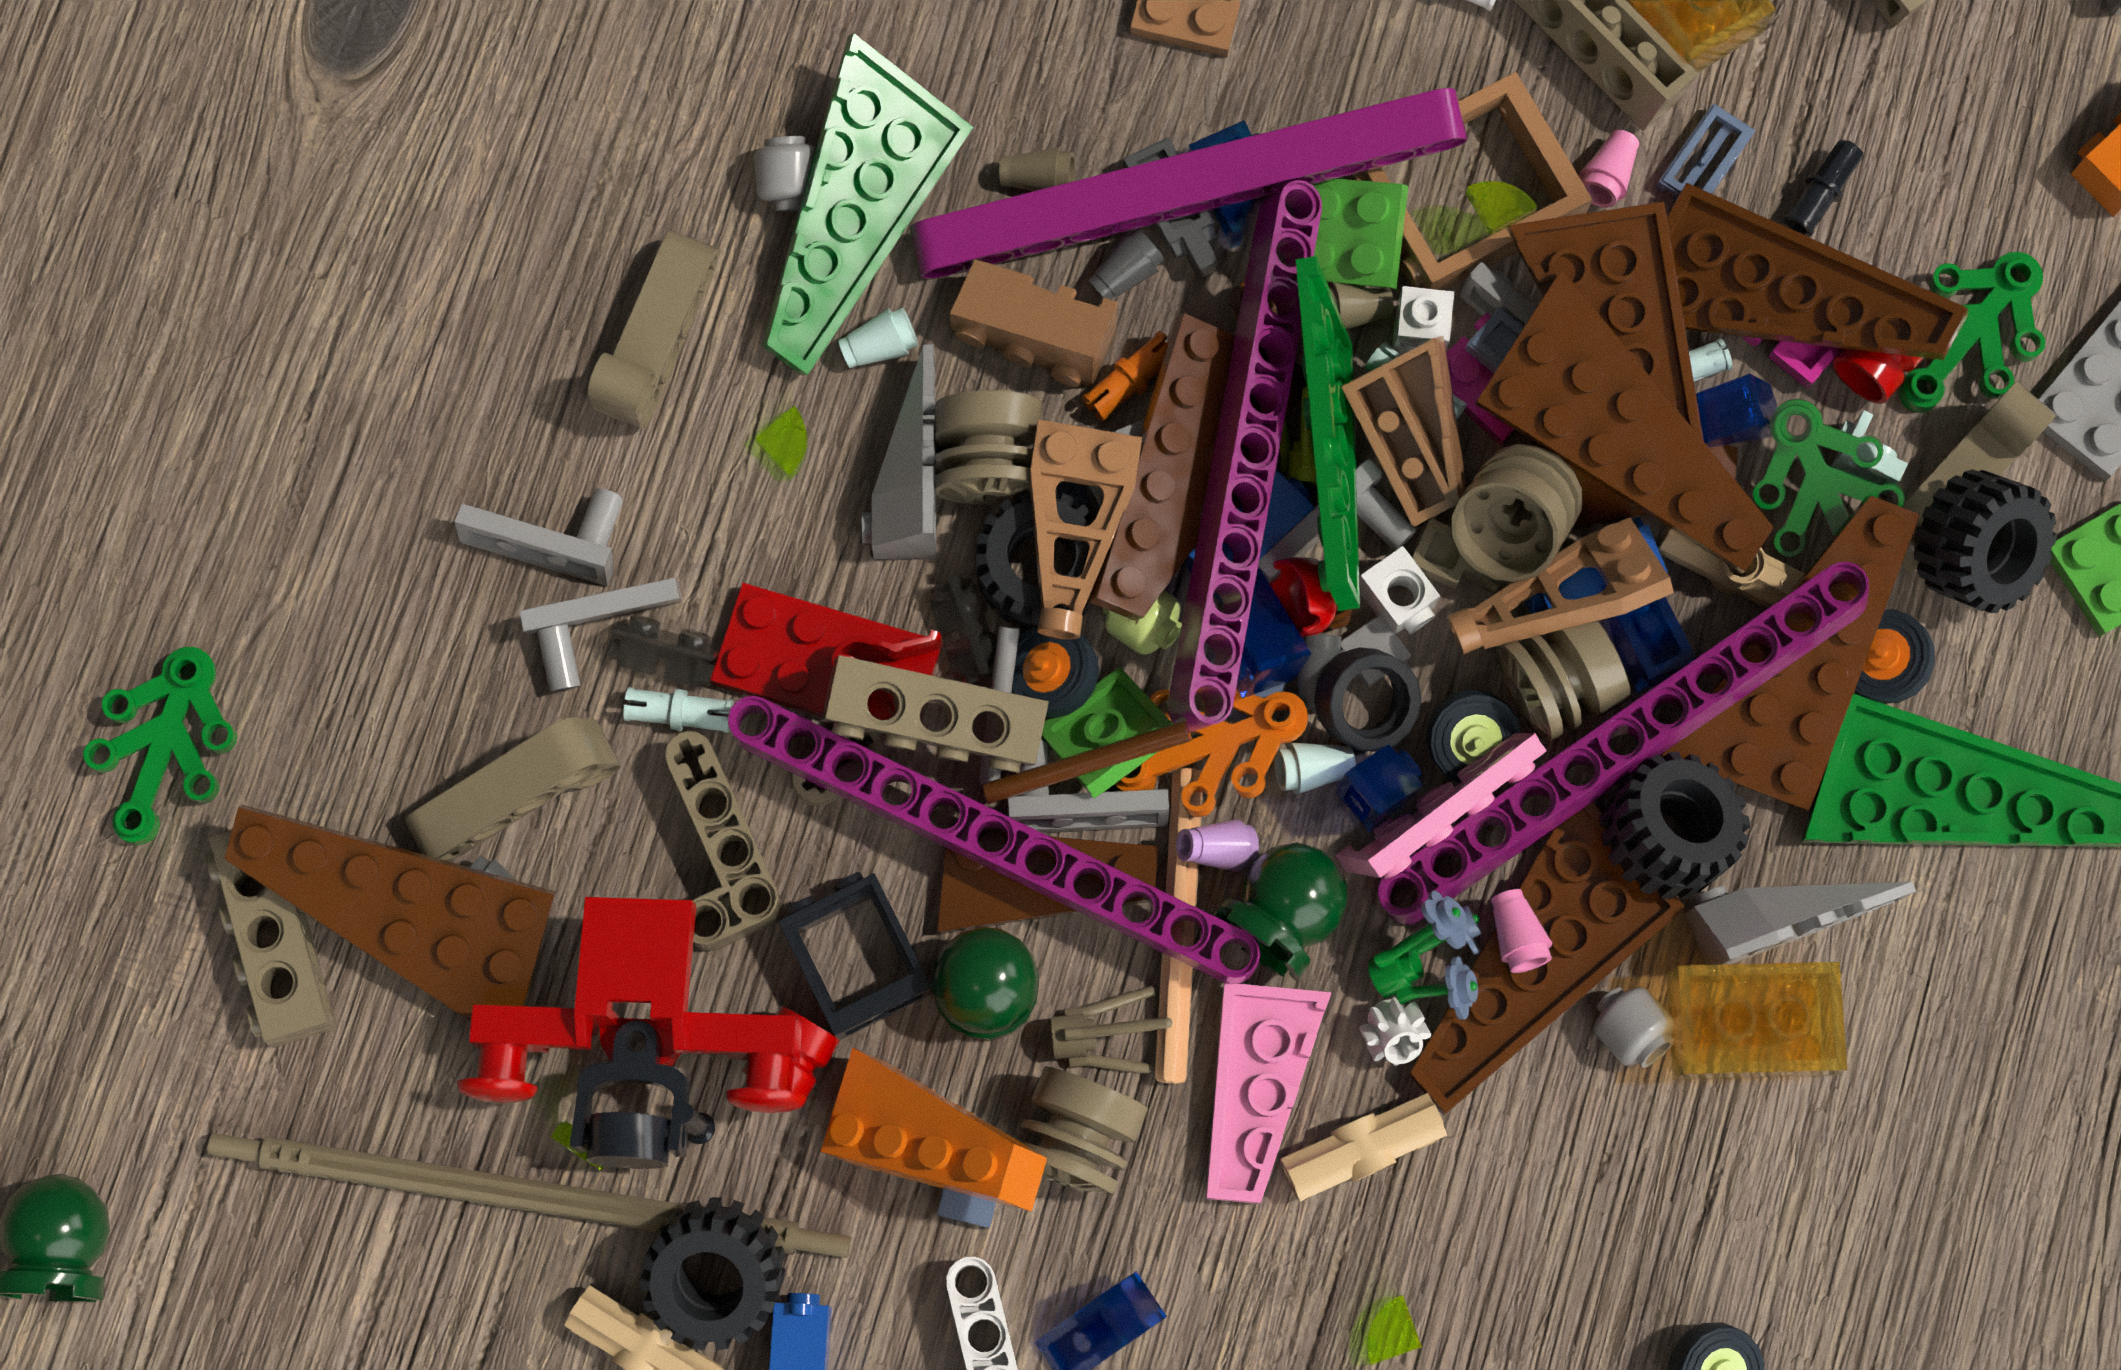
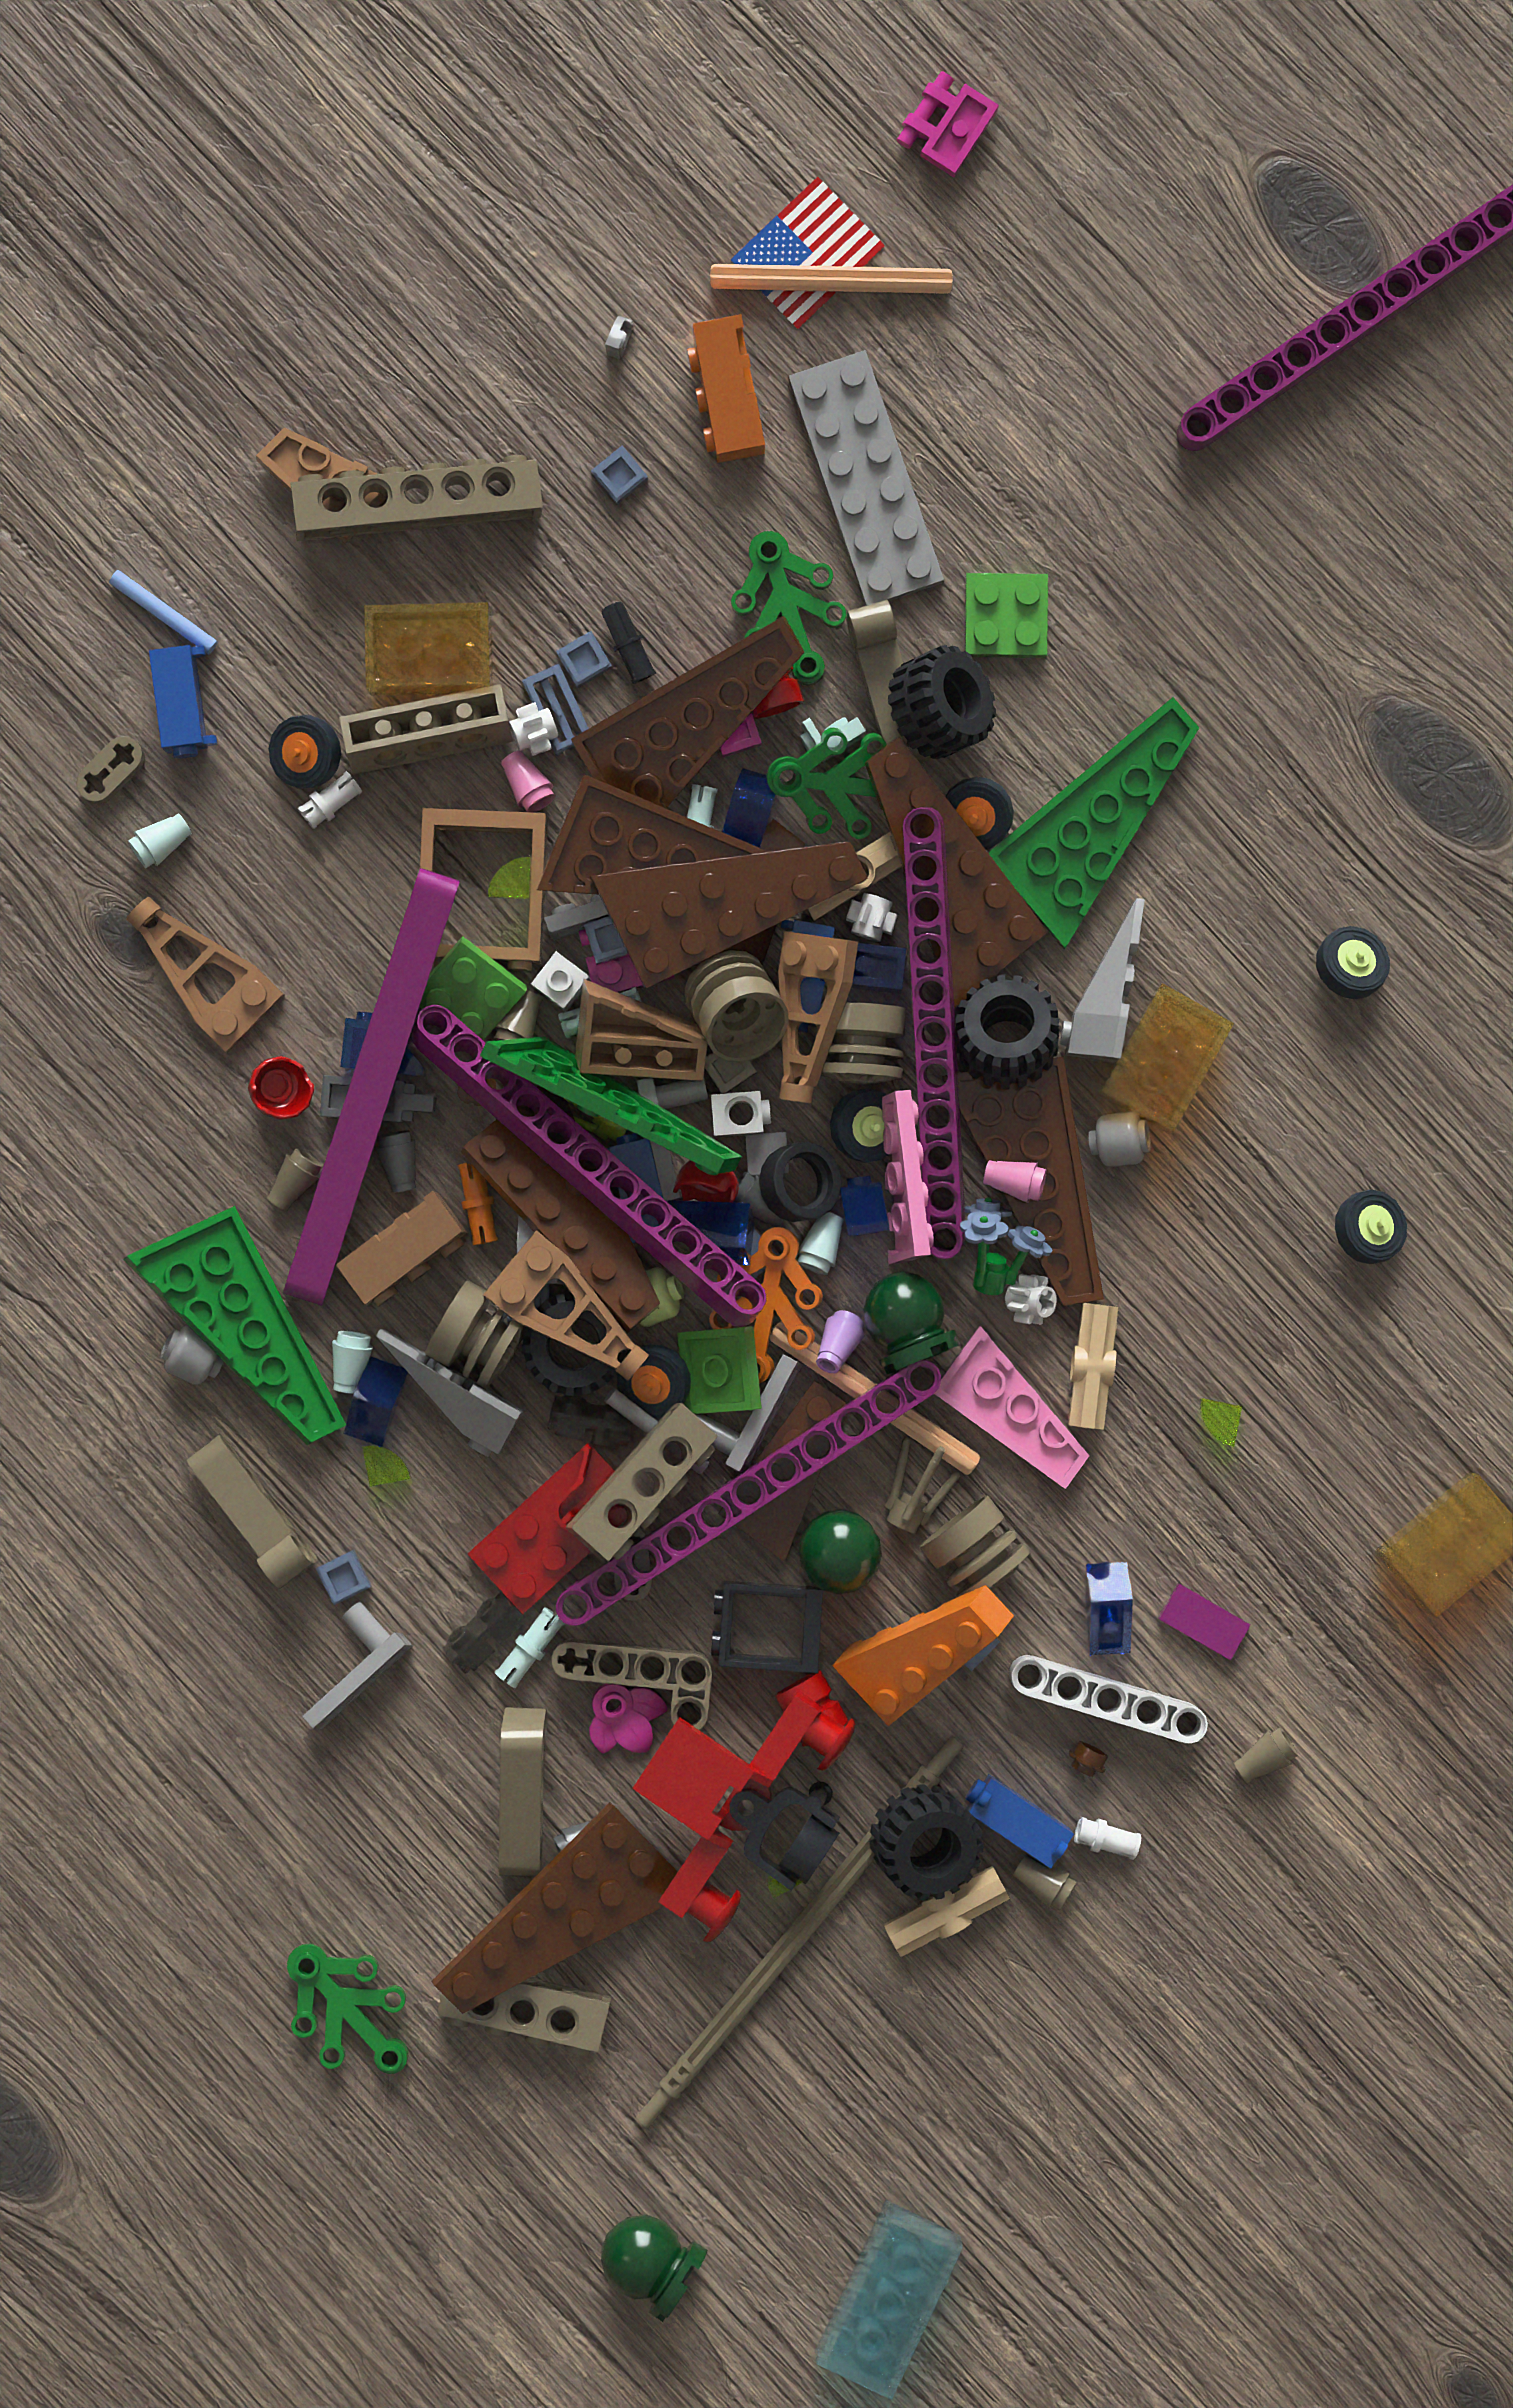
camera: 60 degrees left, 10 degrees up
(553, 620) = (418, 1696): light grey piece -> none
(639, 469) = (343, 1577): none -> sand blue tile
(659, 865) = (628, 1722): none -> dark pink plate
(850, 391) = (375, 1401): none -> clear blue slope
(1087, 762) = (736, 1399): reddish brown bar -> none
(1127, 100) = (280, 1088): none -> red hair
(1671, 138) = (533, 729): none -> white gear
(1703, 609) = (871, 917): none -> white gear
(1776, 155) = (584, 659): none -> sand blue tile
(1991, 80) = (619, 475): none -> sand blue tile
(1996, 1171) = (1352, 962): none -> black wheel

